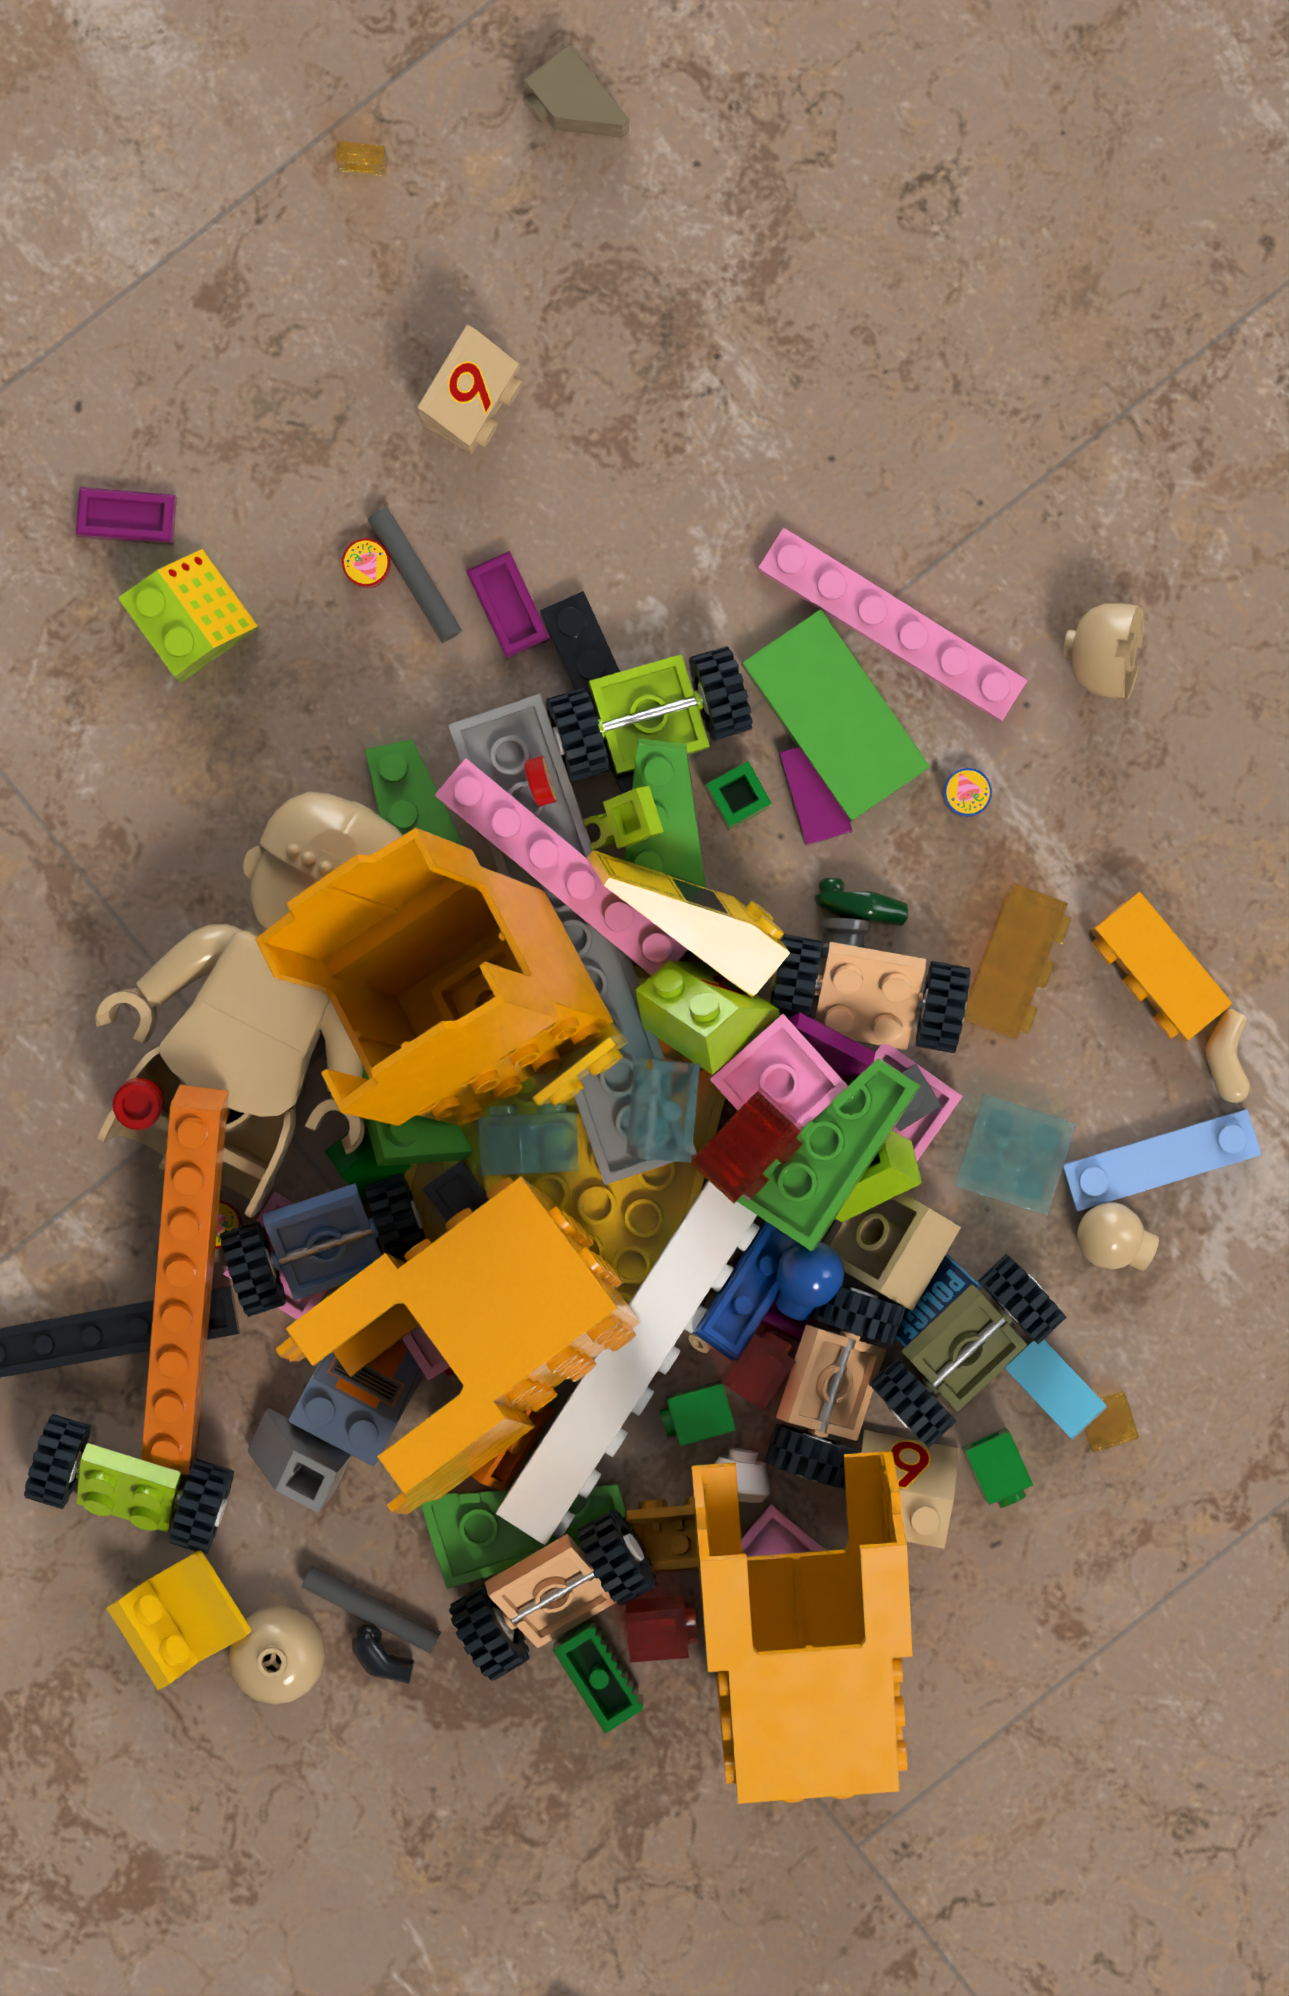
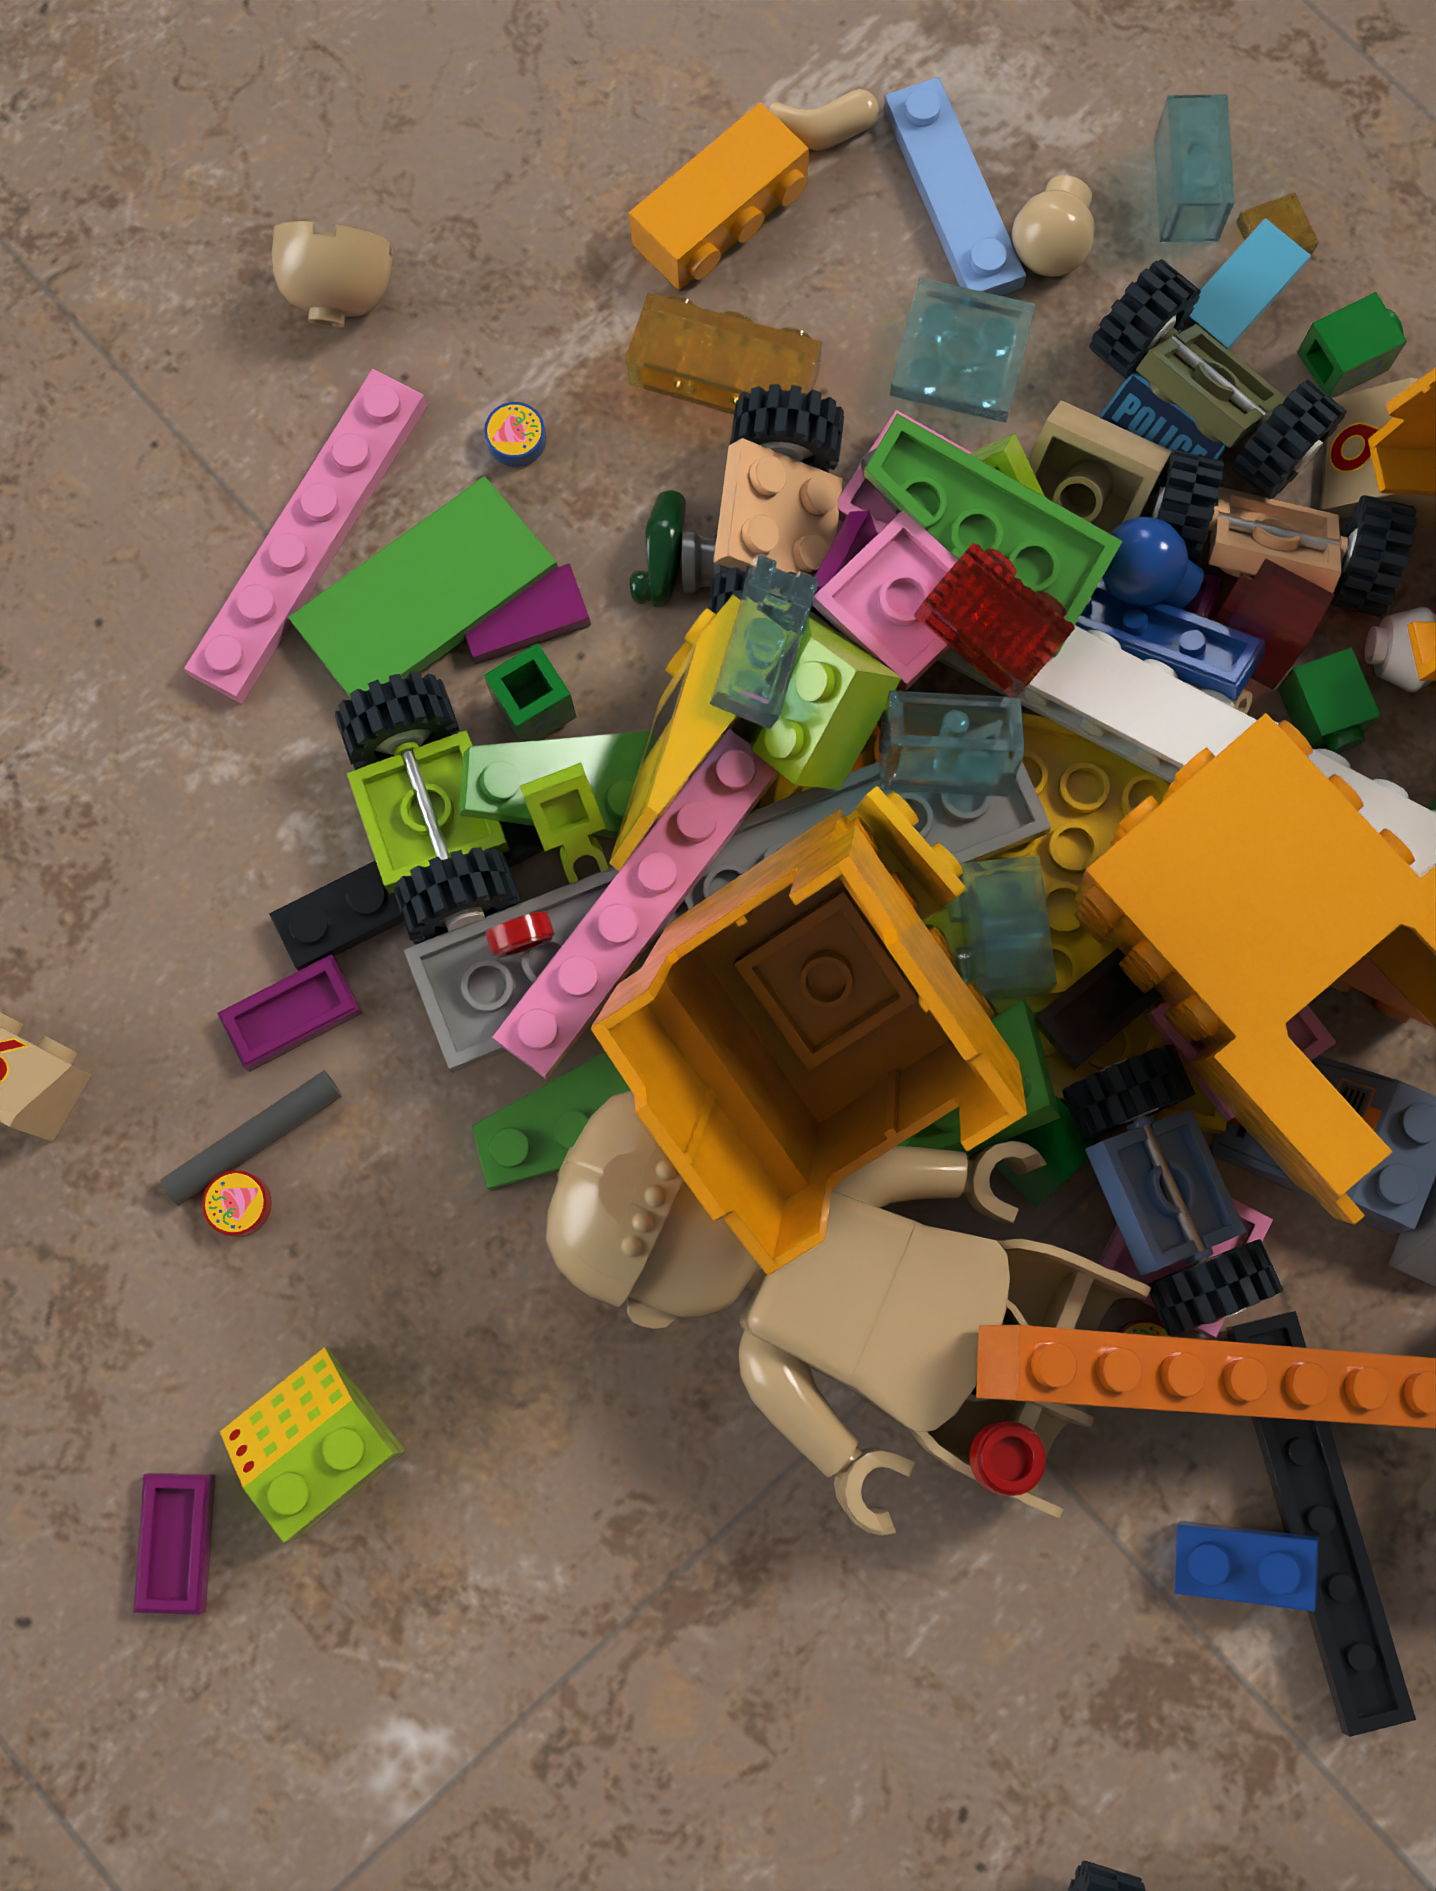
camera: 85 degrees left, 10 degrees down
(63, 1279) = (1247, 1565): none -> blue plate
(744, 973) = (764, 642): none -> clear light blue plate
(1160, 1354) = (1193, 168): none -> clear light blue brick

